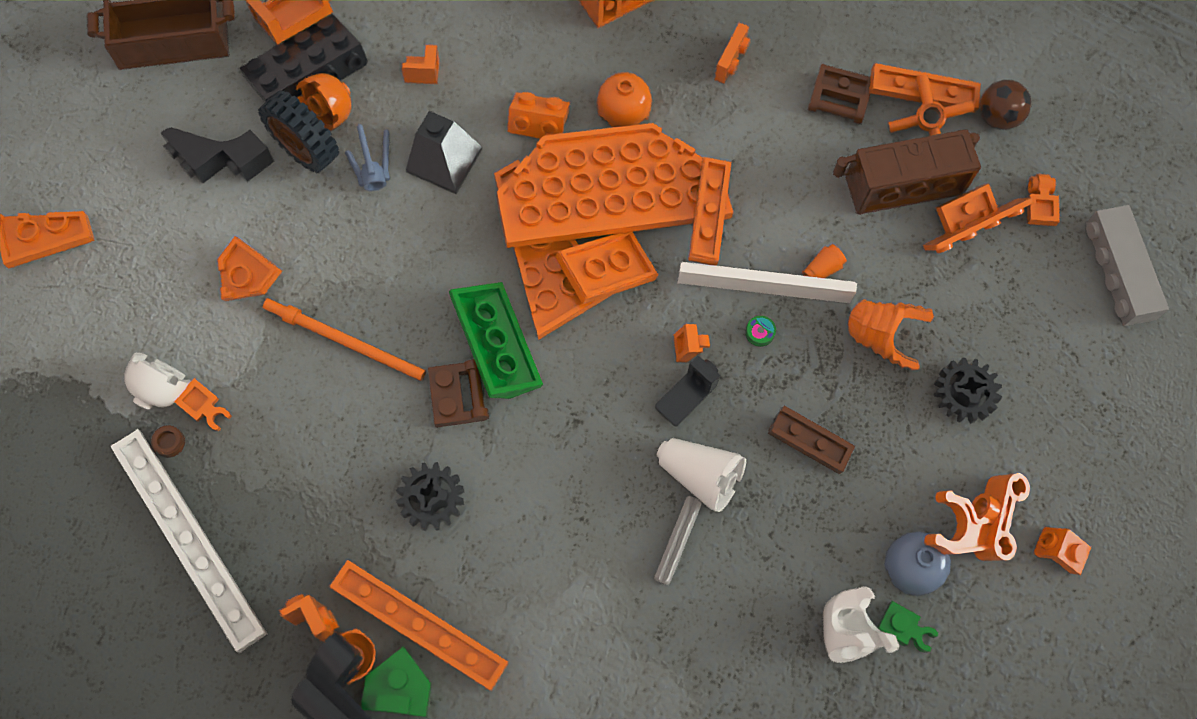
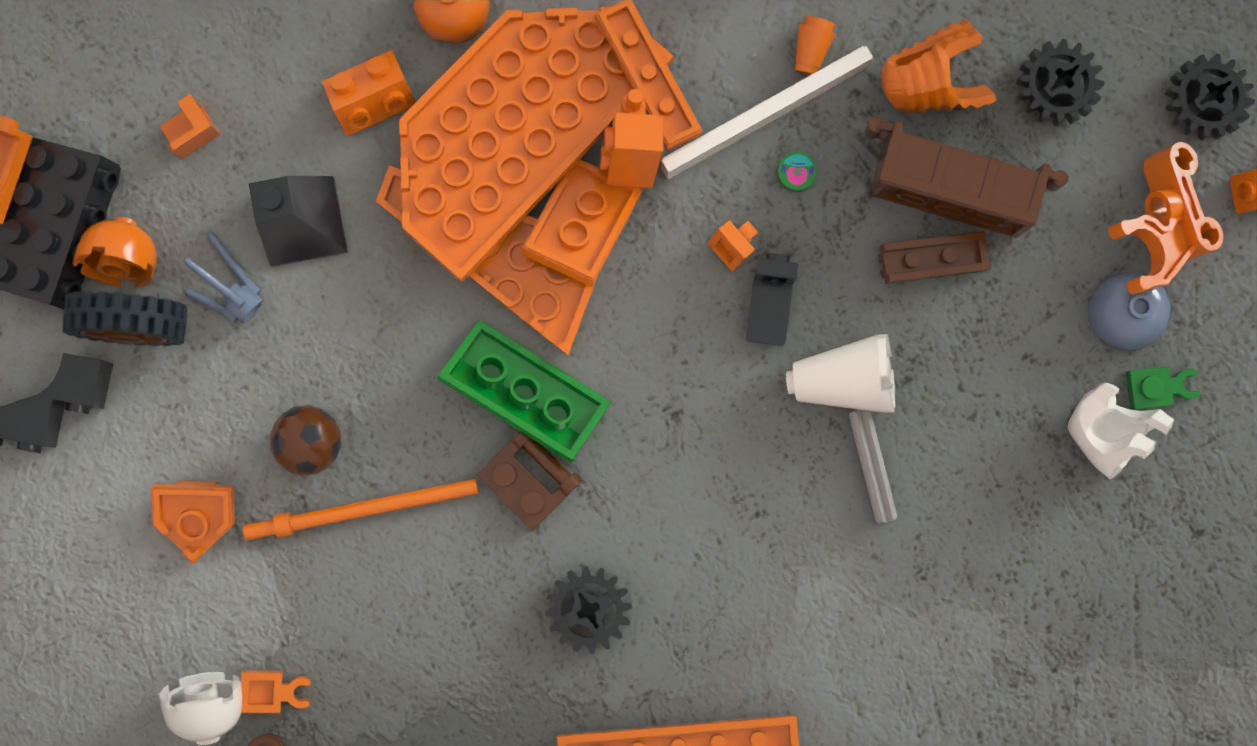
camera: 30 degrees left, 15 degrees up
(343, 272) = (305, 440): none -> reddish brown piece
(668, 239) = (632, 144): none -> orange brick
(859, 400) = (958, 181): none -> reddish brown container
(1054, 474) = (1198, 82): none -> black gear

